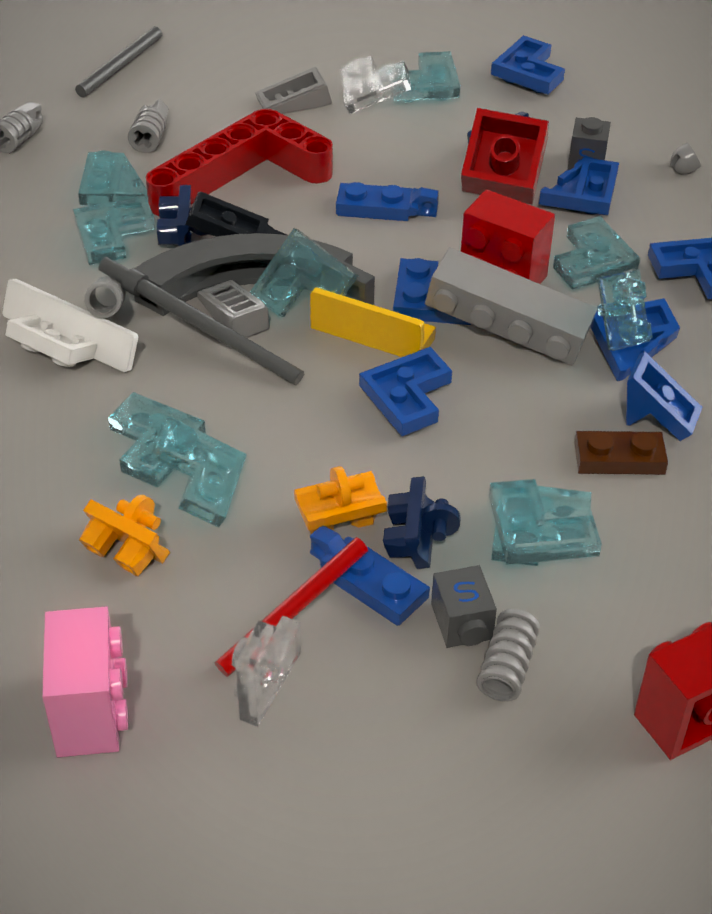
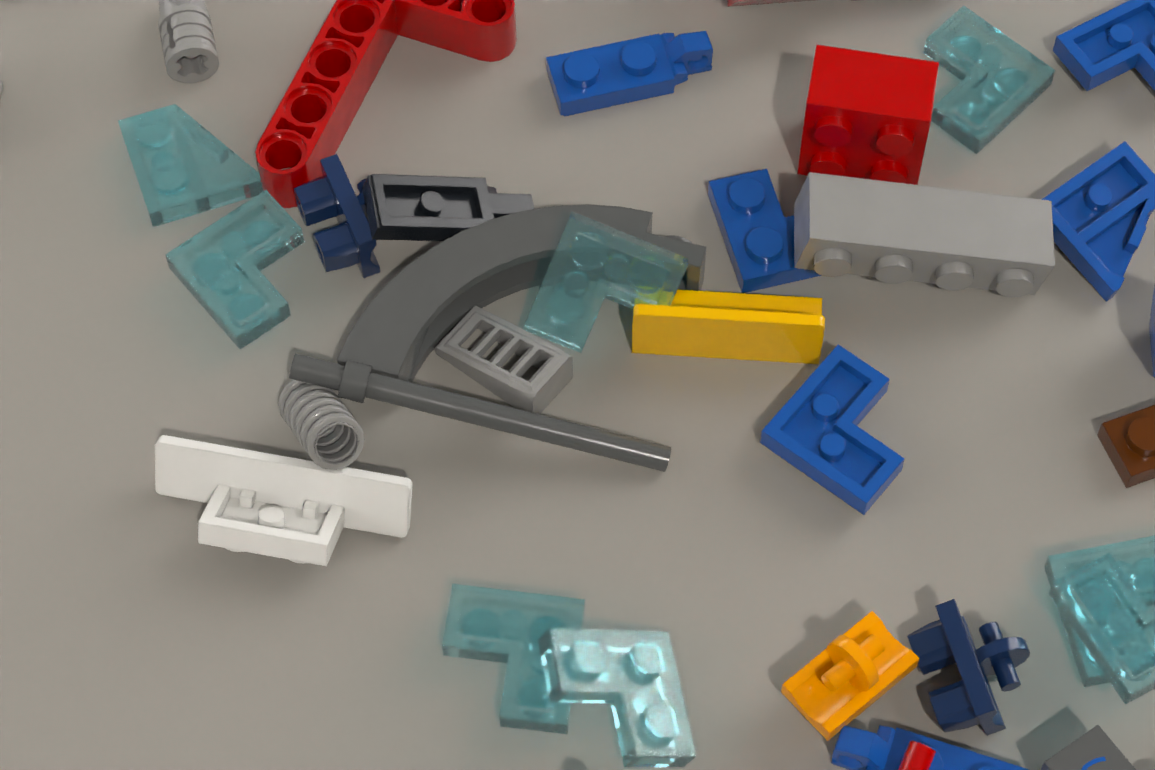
camera: 20 degrees left, 15 degrees up
(624, 309) = (1096, 198): clear light blue hips -> none

